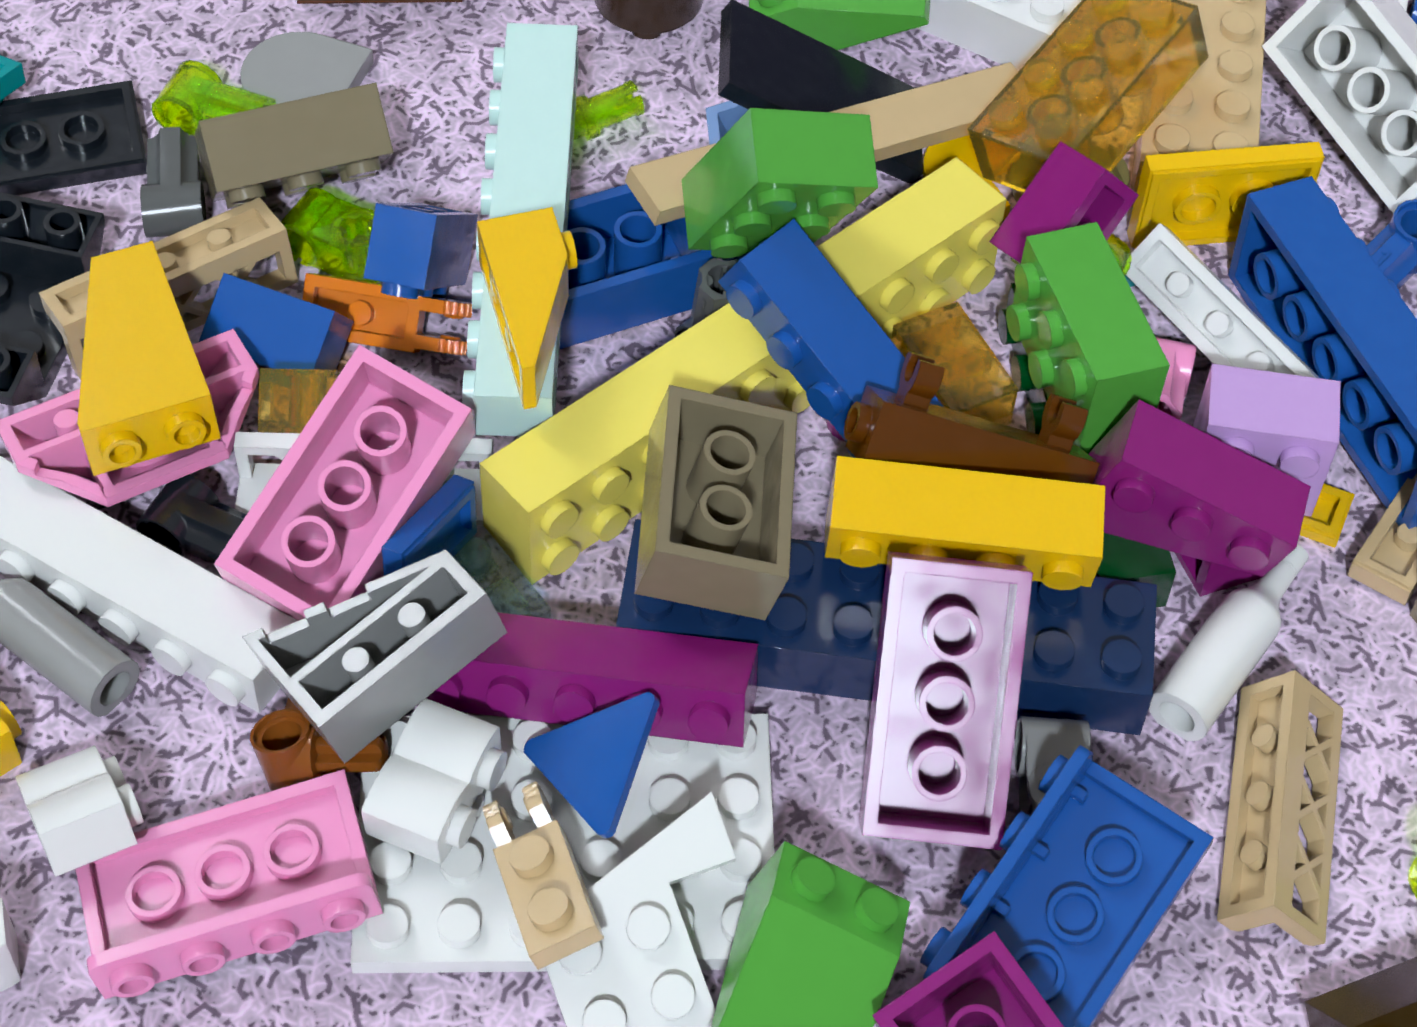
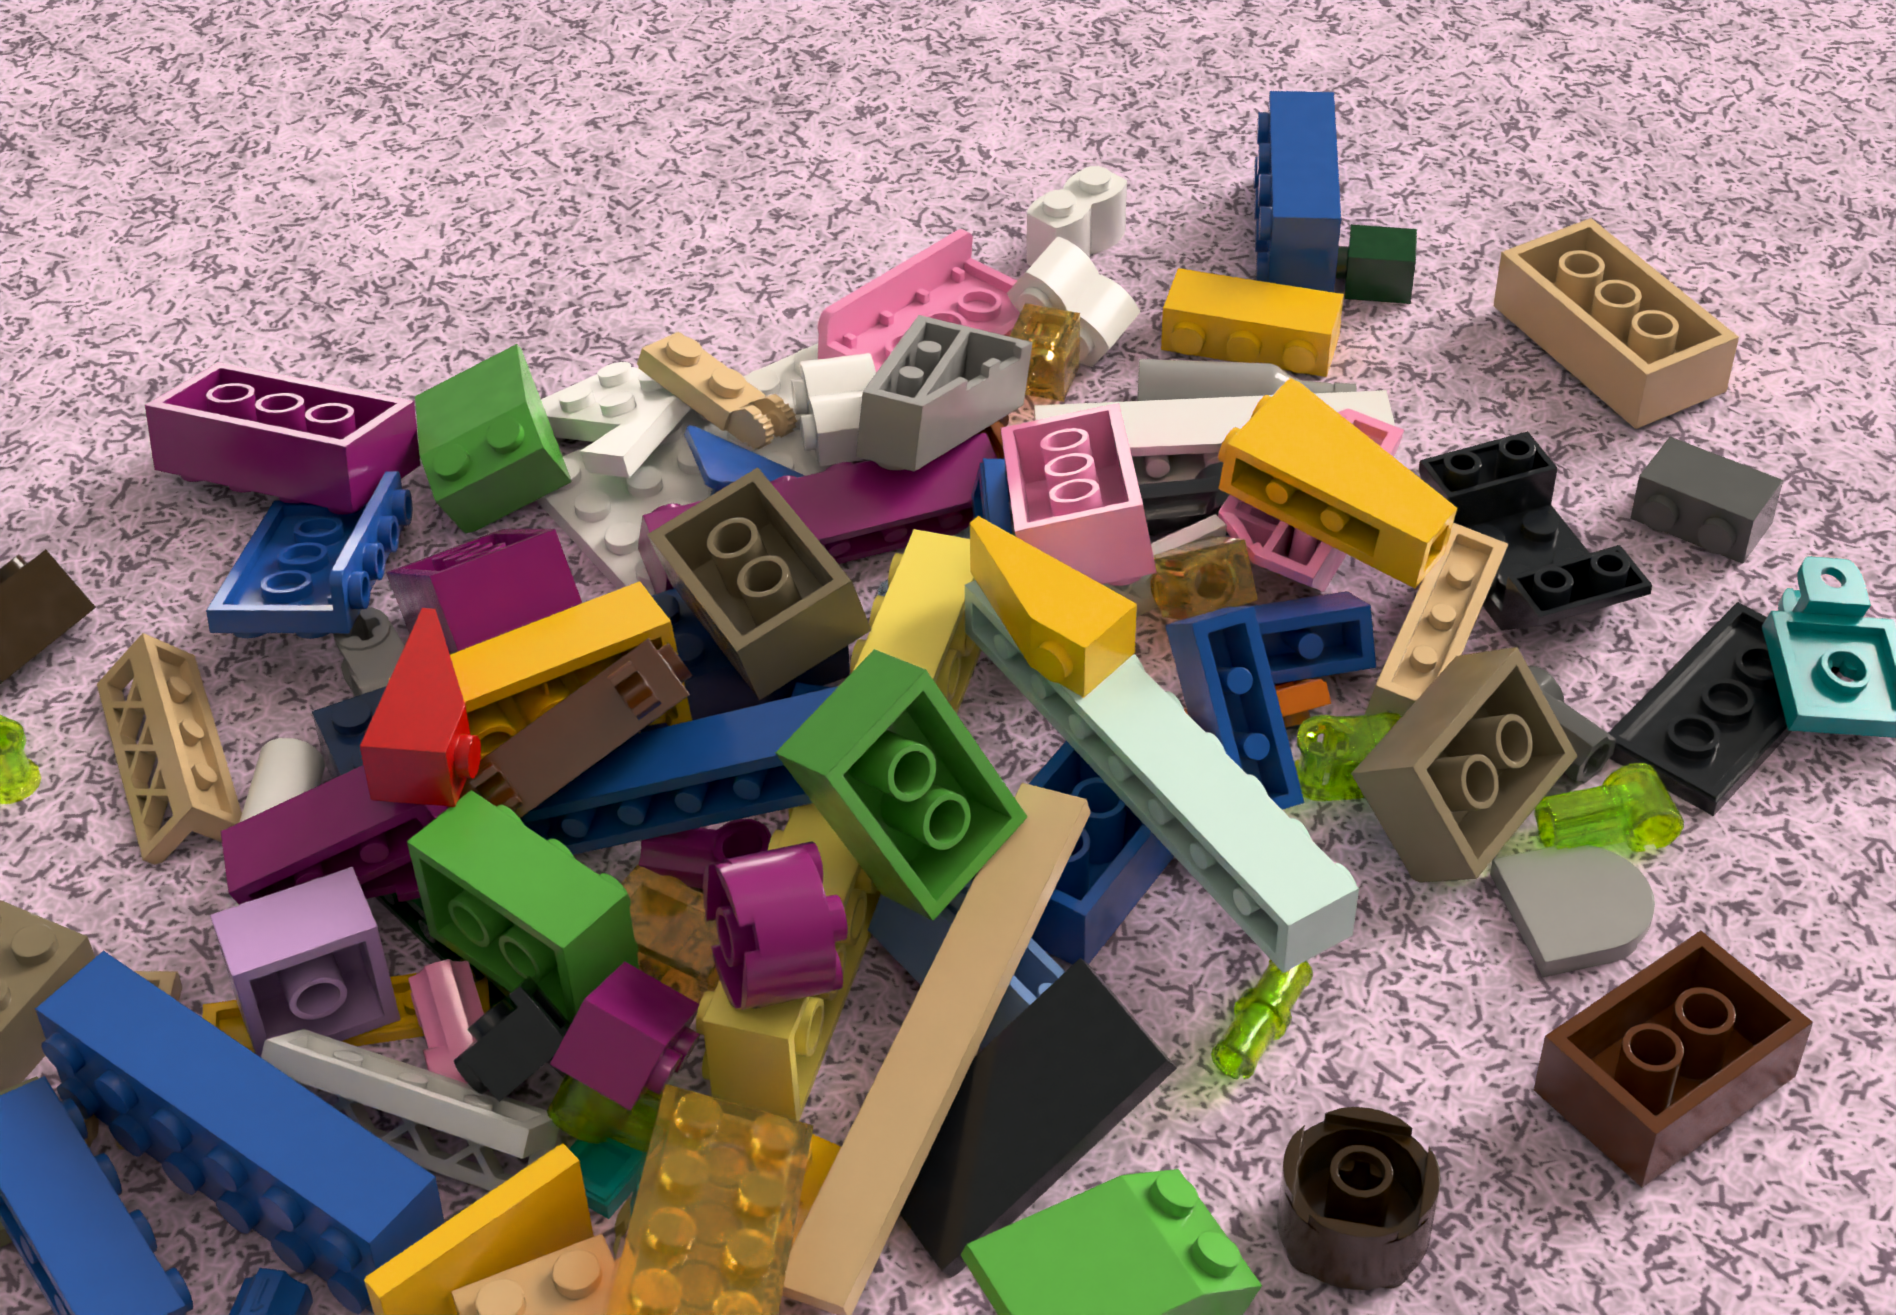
camera: 150 degrees right, 10 degrees down
(168, 761) = (1054, 349): none -> clear yellow brick
(935, 164) = (774, 926): none -> magenta brick
(1121, 413) = (420, 732): none -> red slope
(1154, 285) = (512, 1042): none -> black brick

